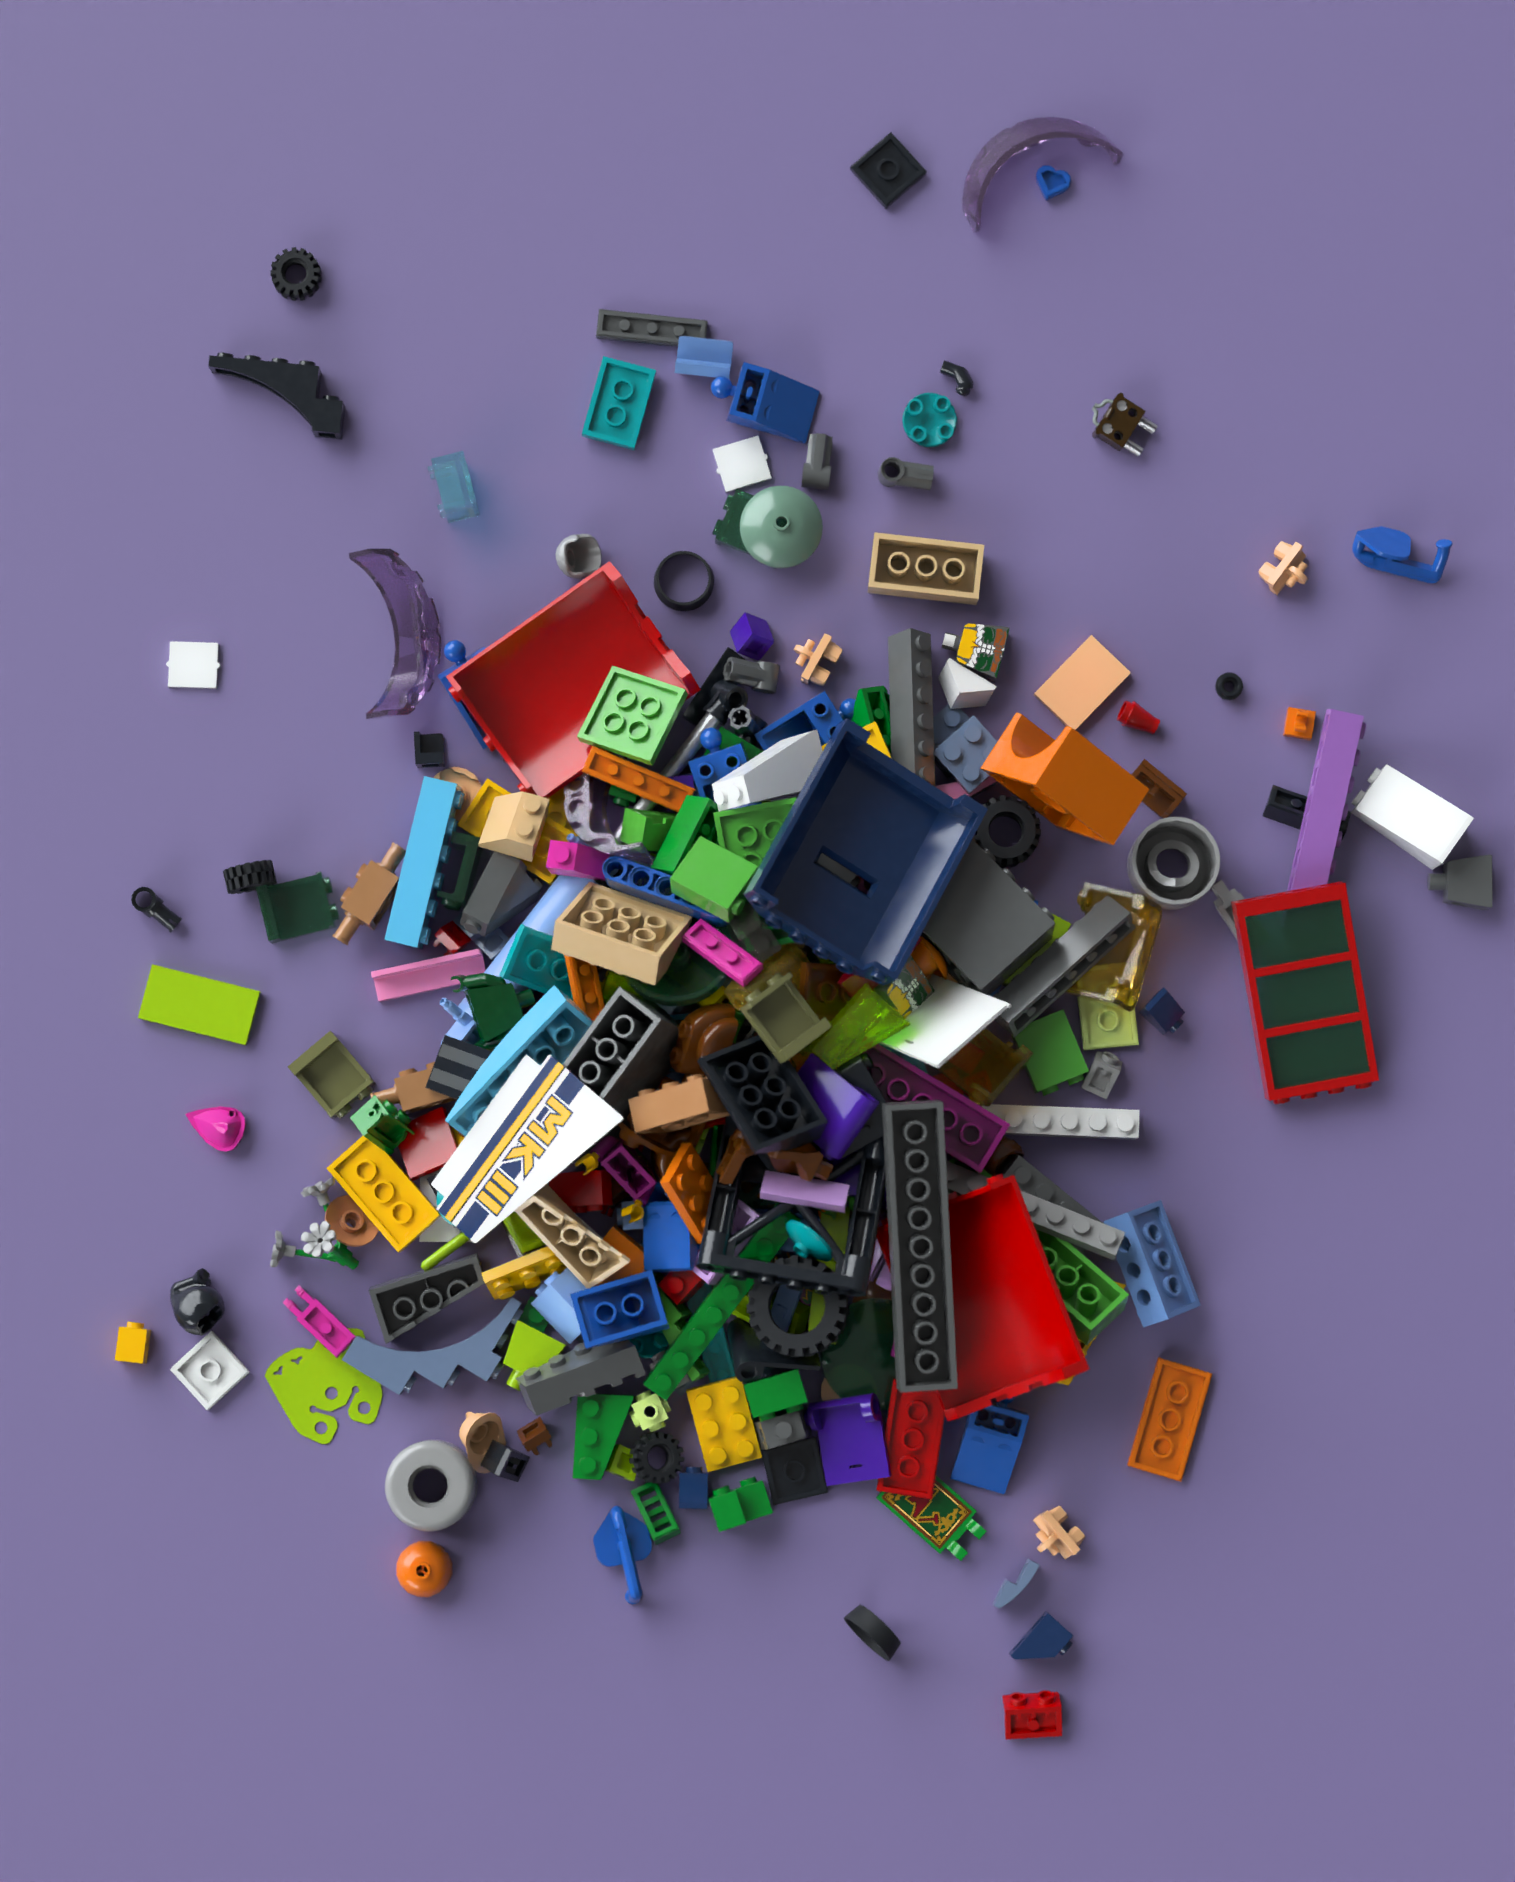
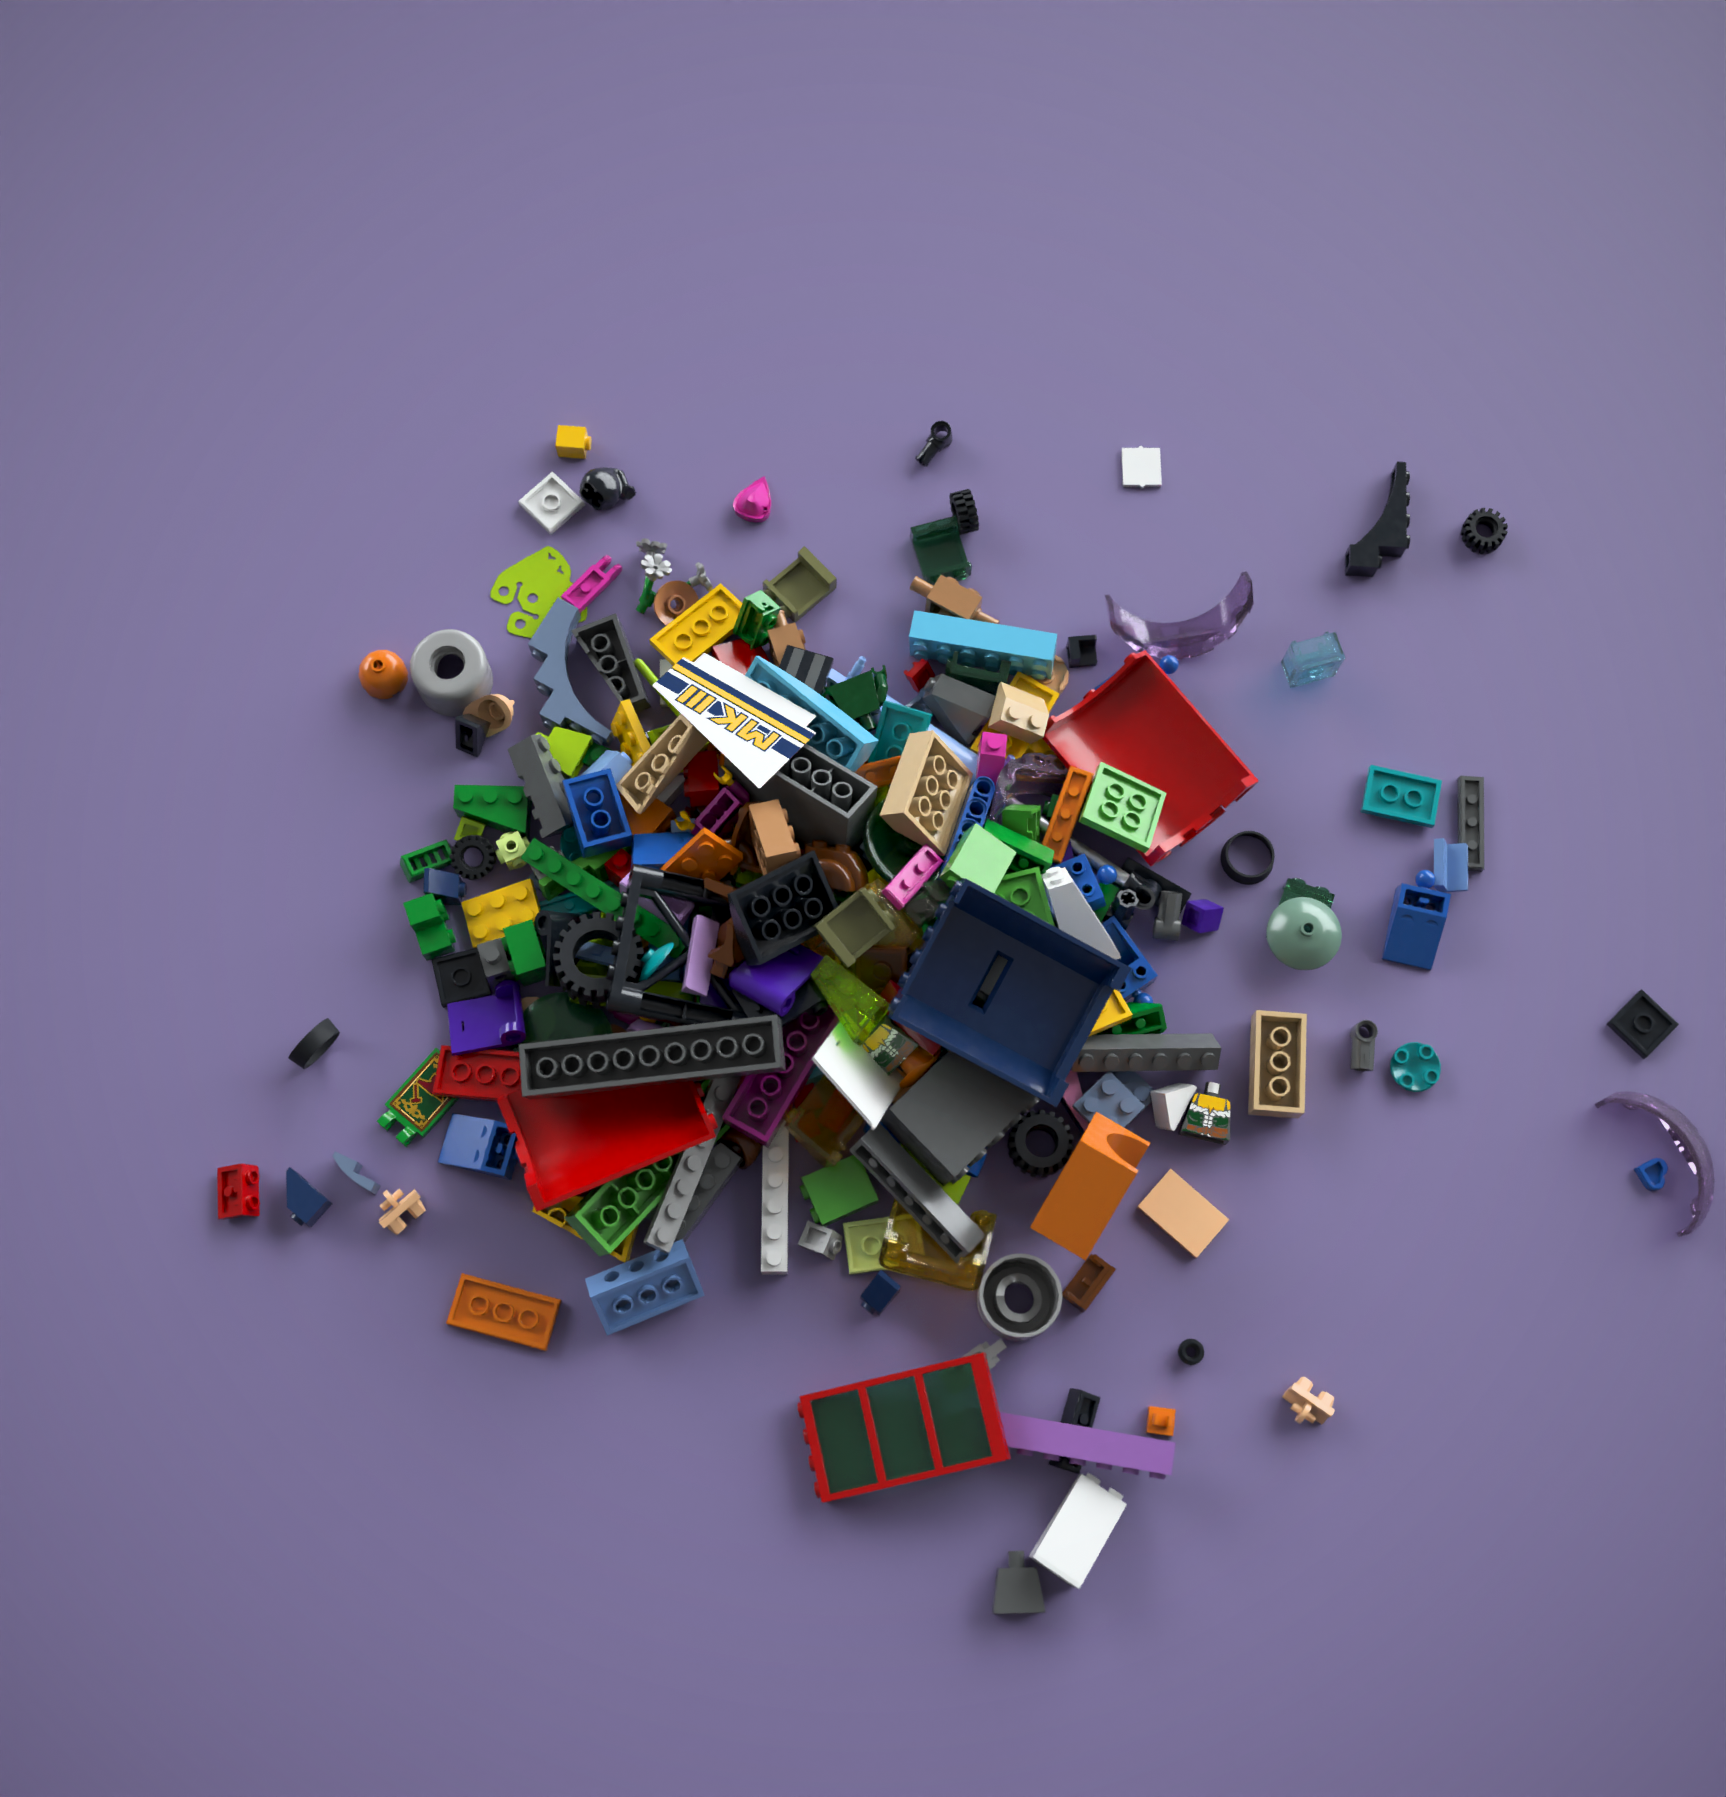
camera: 90 degrees right, 10 degrees down
(199, 1005) = (855, 482): lime tile -> none
(426, 974) = (887, 653): bright pink panel -> none
(534, 1434) = (494, 756): reddish brown tile -> none
(578, 555) = (1263, 763): light grey hair -> none
(623, 1542) = (399, 829): blue piece -> none
(742, 464) = (1357, 904): white piece -> none
(817, 469) = (1357, 968): dark grey piece -> none
(825, 649) = (1186, 968): light nougat hips -> none
(960, 375) = (1458, 1094): black arm -> none
(1118, 422) = (1431, 1240): dark brown piece -> none
(1136, 717) = (1154, 1265): red cone -> none
(1392, 554) = (1334, 1504): blue piece -> none

